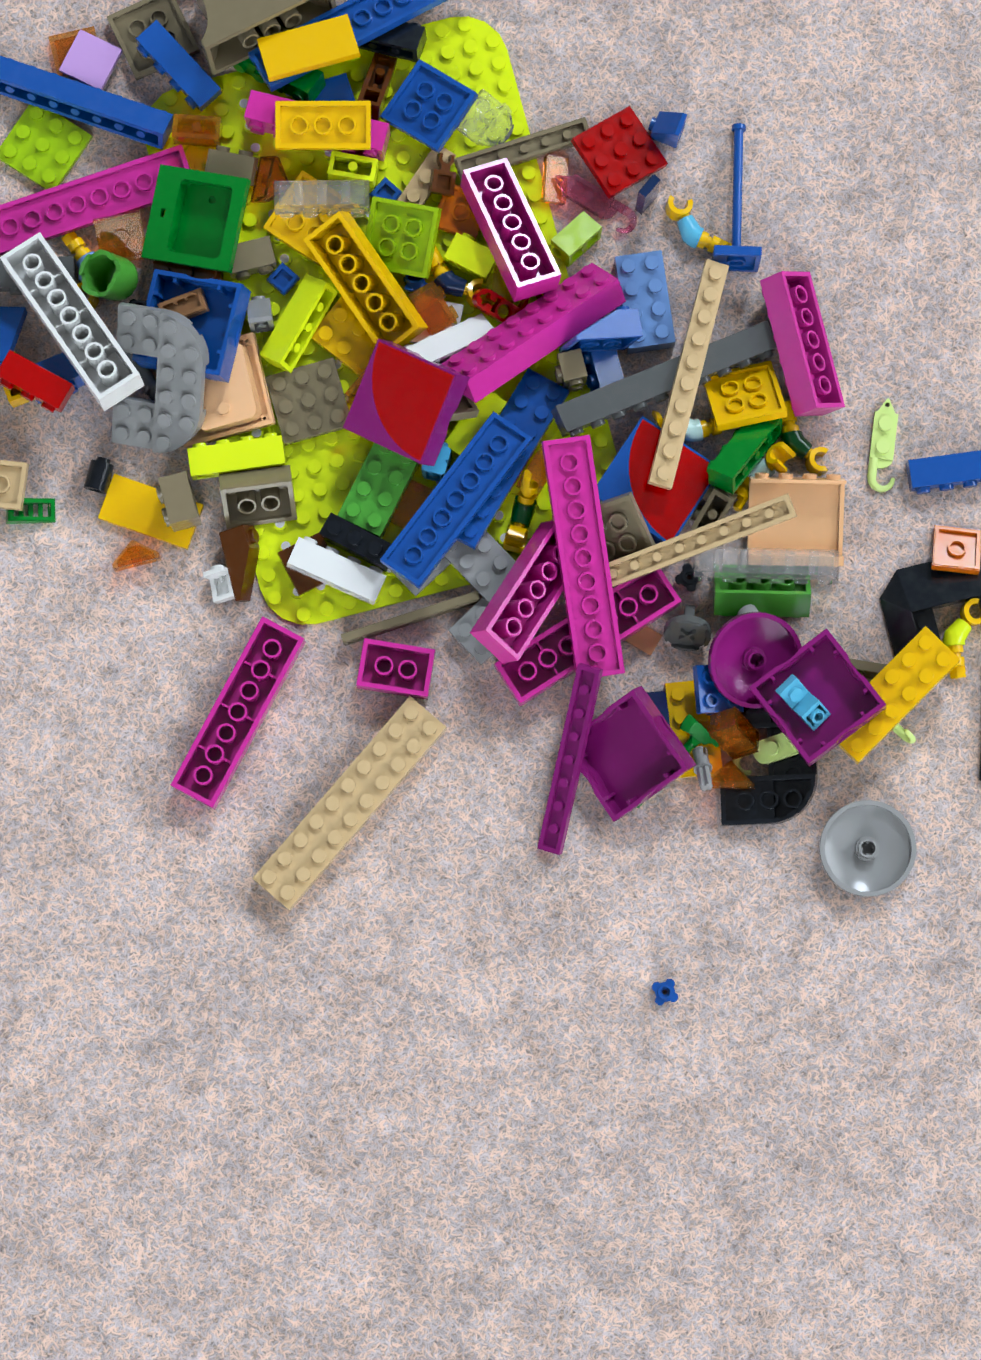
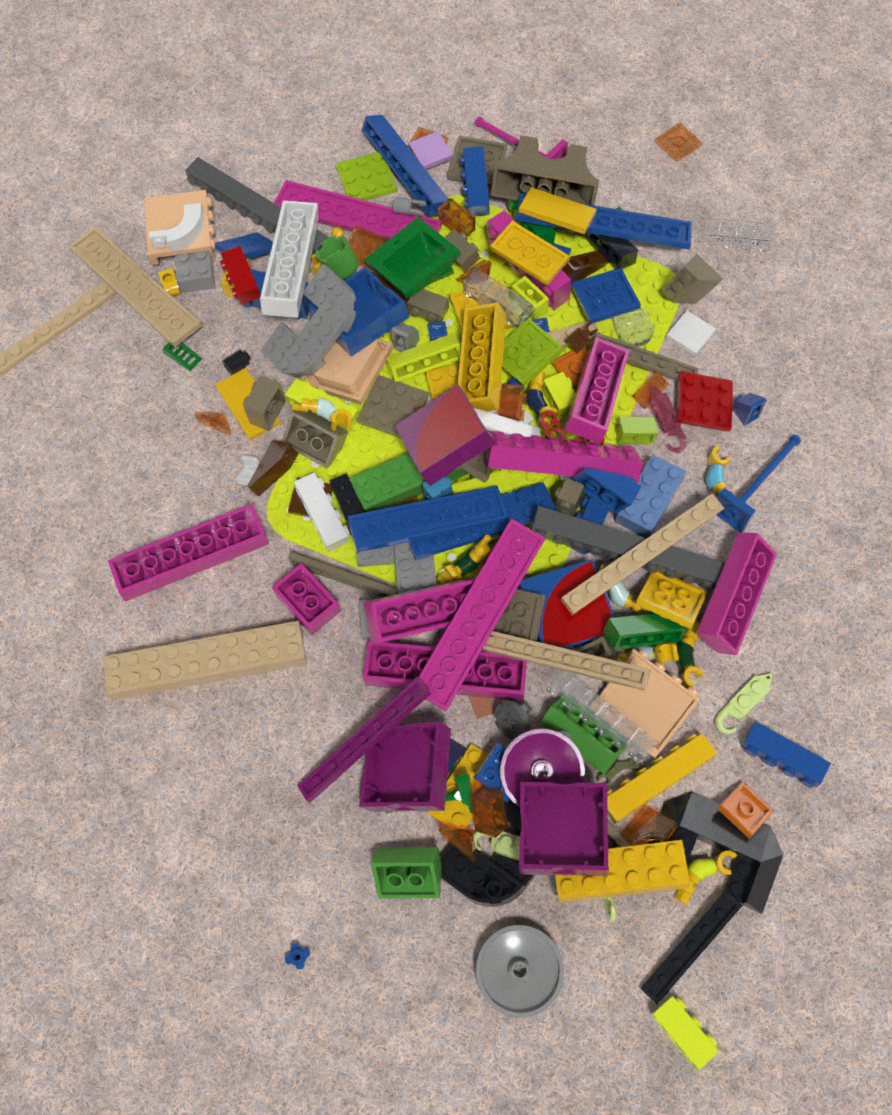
camera: 45 degrees right, 15 degrees down
(128, 157) = (405, 206): none -> light grey hinge
(188, 304) = (367, 299): medium nougat plate -> none
(255, 461) = (327, 410): none -> yellow piece
(507, 28) = (691, 282): none -> dark tan slope
(545, 79) = (691, 333): none -> white tile
(647, 194) = (703, 430): dark blue tile -> none
(682, 577) = (540, 693): black plate -> none
(702, 768) = (447, 817): light grey axle -> none
(704, 844) = (407, 872): none -> bright green slope
(802, 702) = (550, 823): medium azure slope -> none
(815, 597) = (619, 766): none -> olive piece
(860, 578) = (659, 777): none -> yellow brick
(882, 633) = (648, 826): none -> clear orange tile

